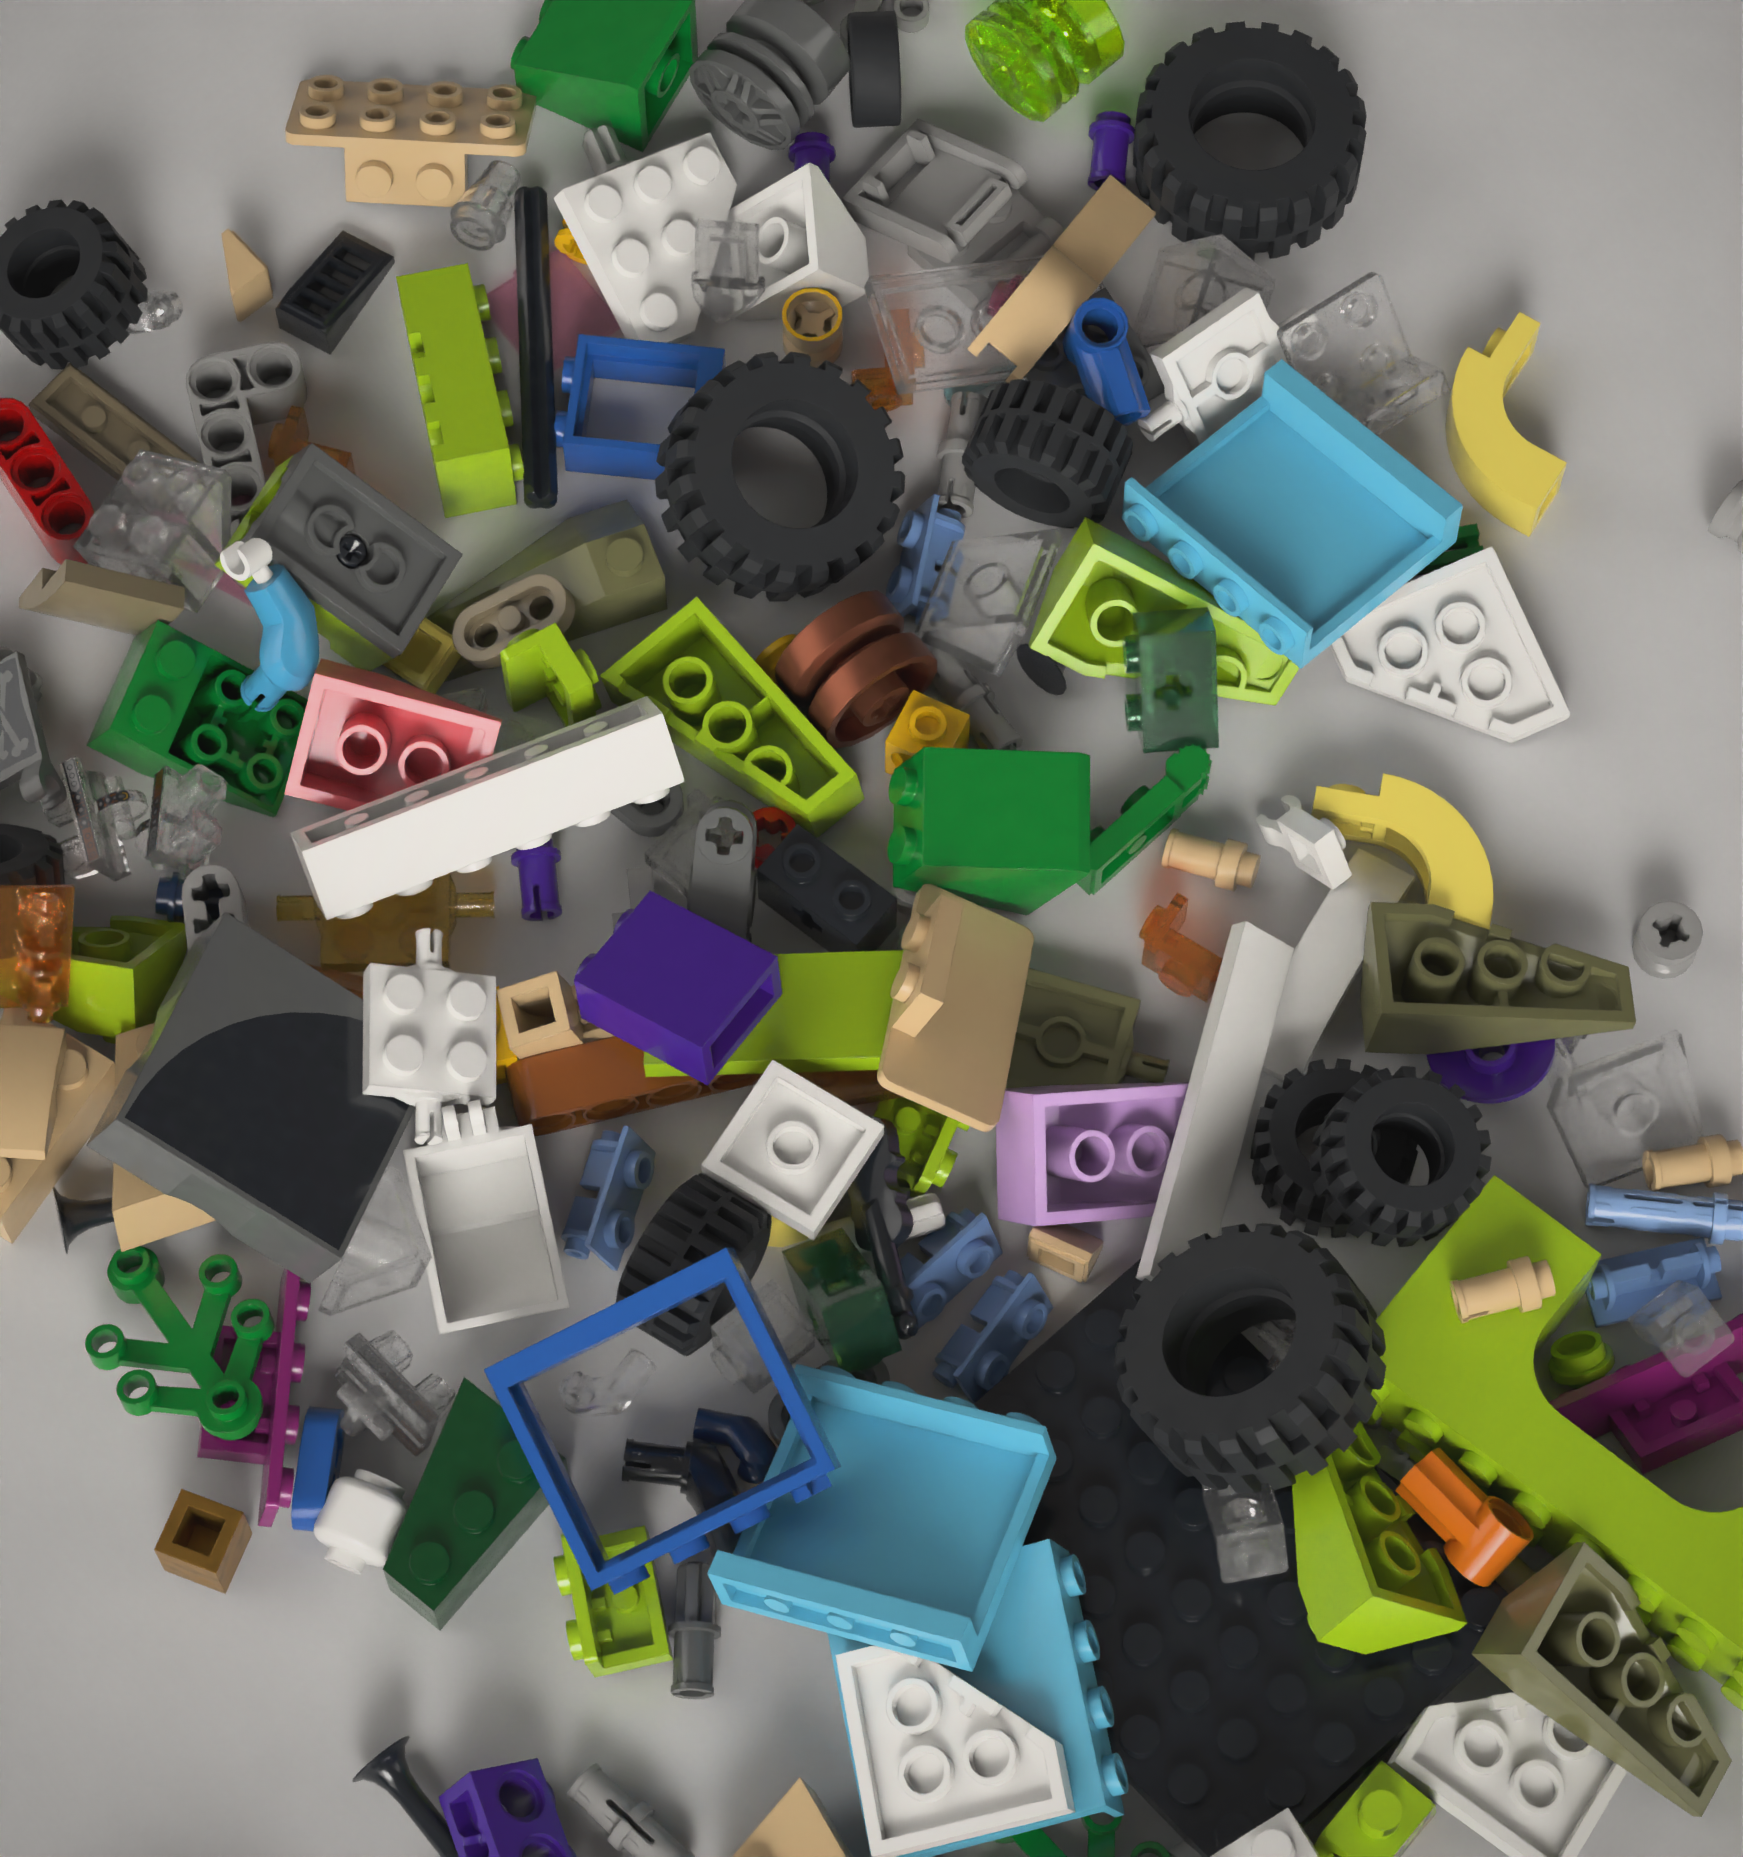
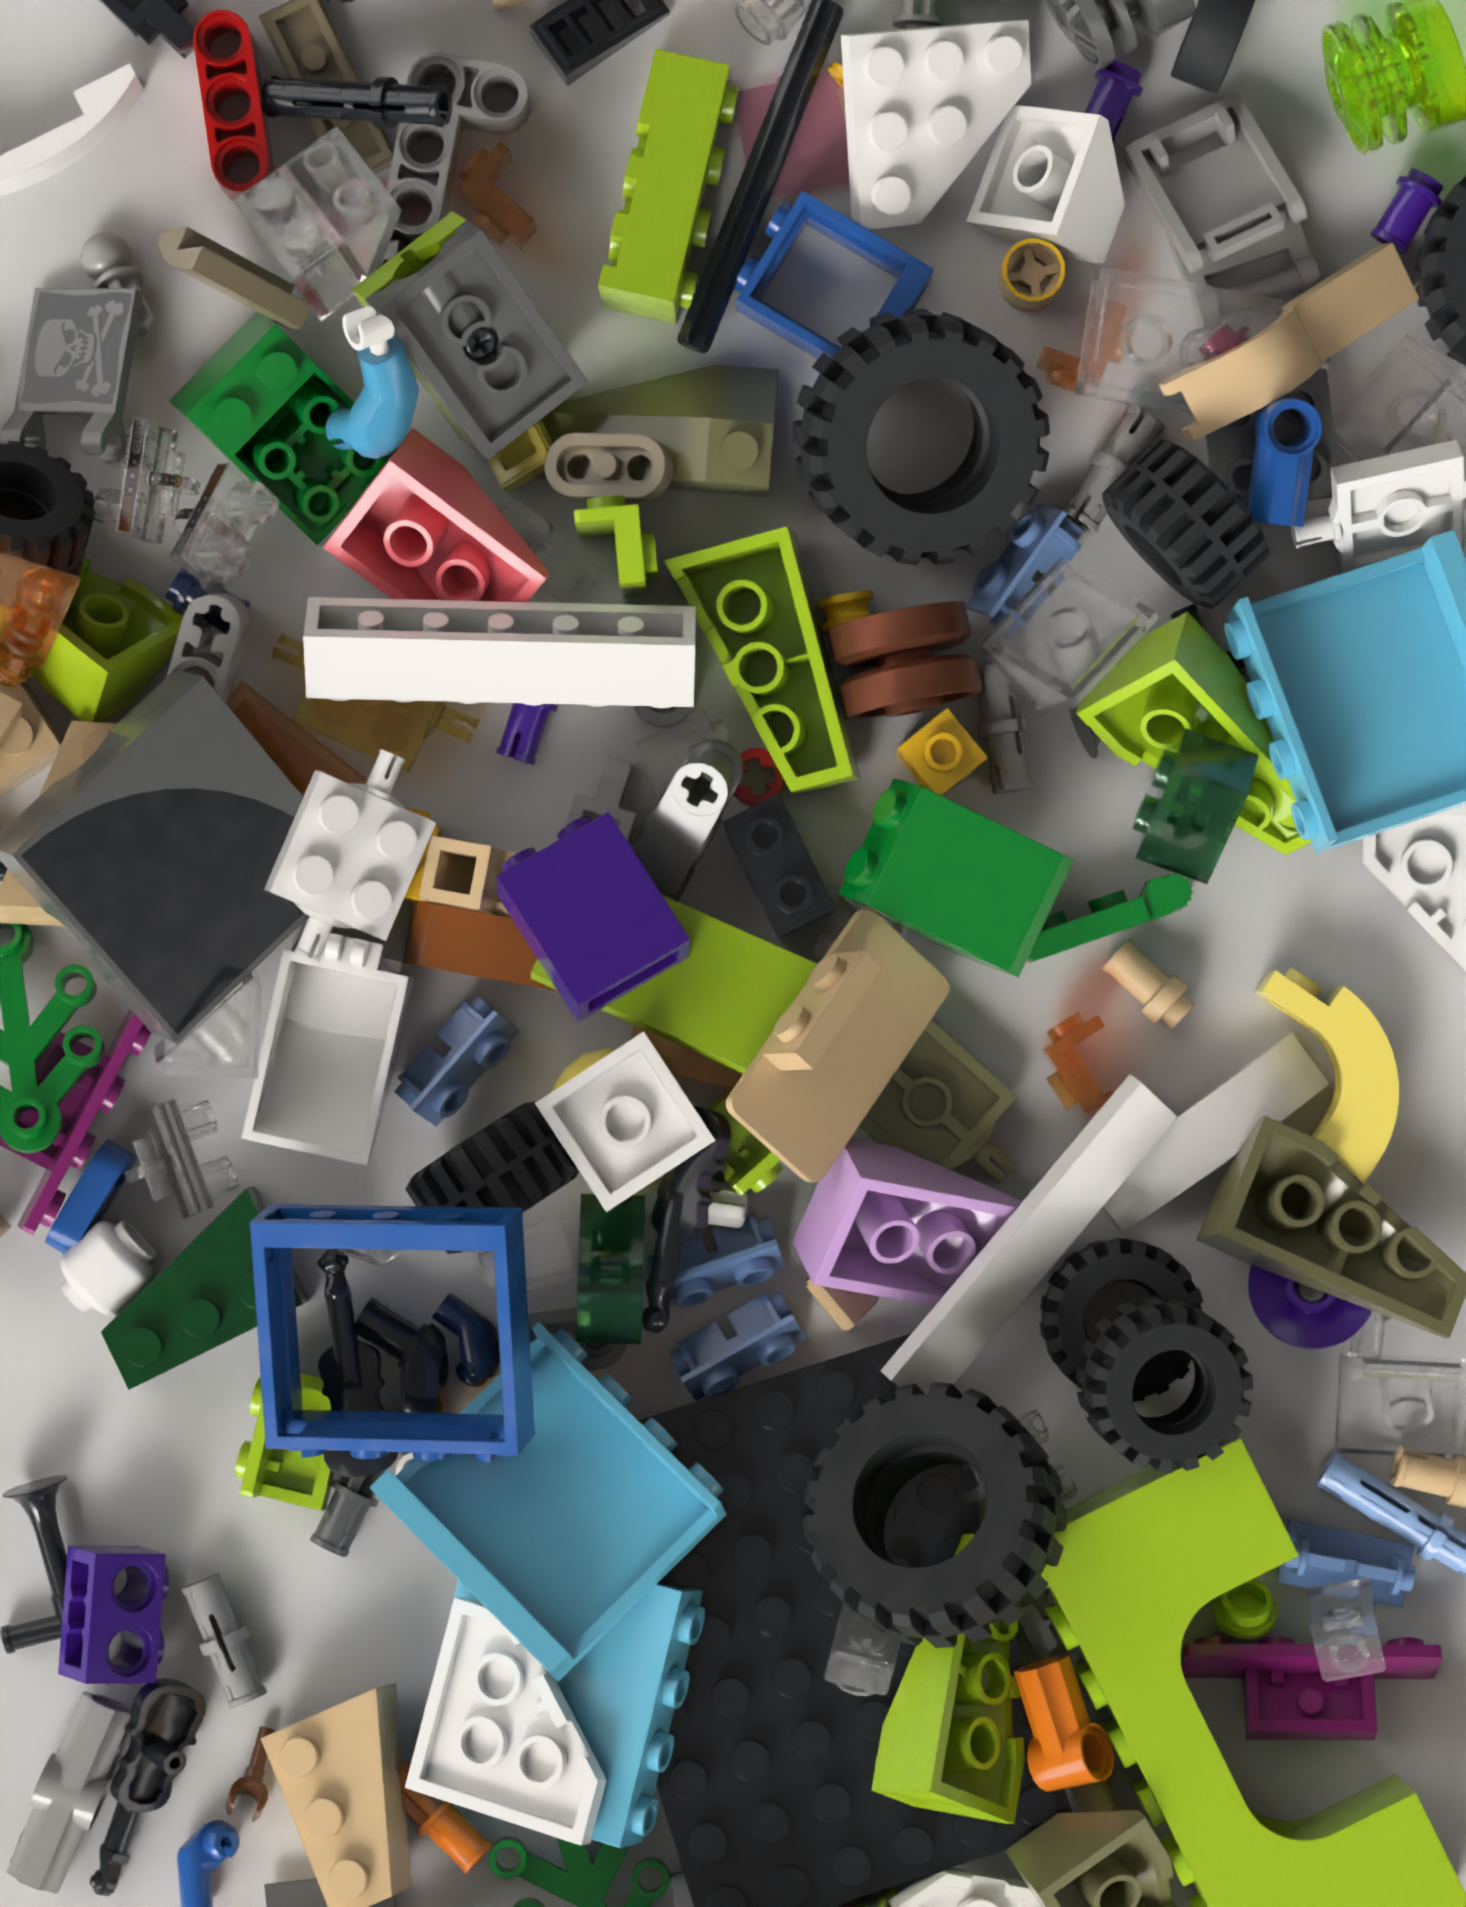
camera: 30 degrees right, 20 degrees up
(211, 393) = (380, 101): none -> black pin
(640, 1512) = (349, 1367): none -> black piece
(726, 268) = (977, 176): clear tile -> none
(1312, 842) = (1247, 1022): white plate -> none
(1518, 1285) = (1191, 1557): tan animal -> none

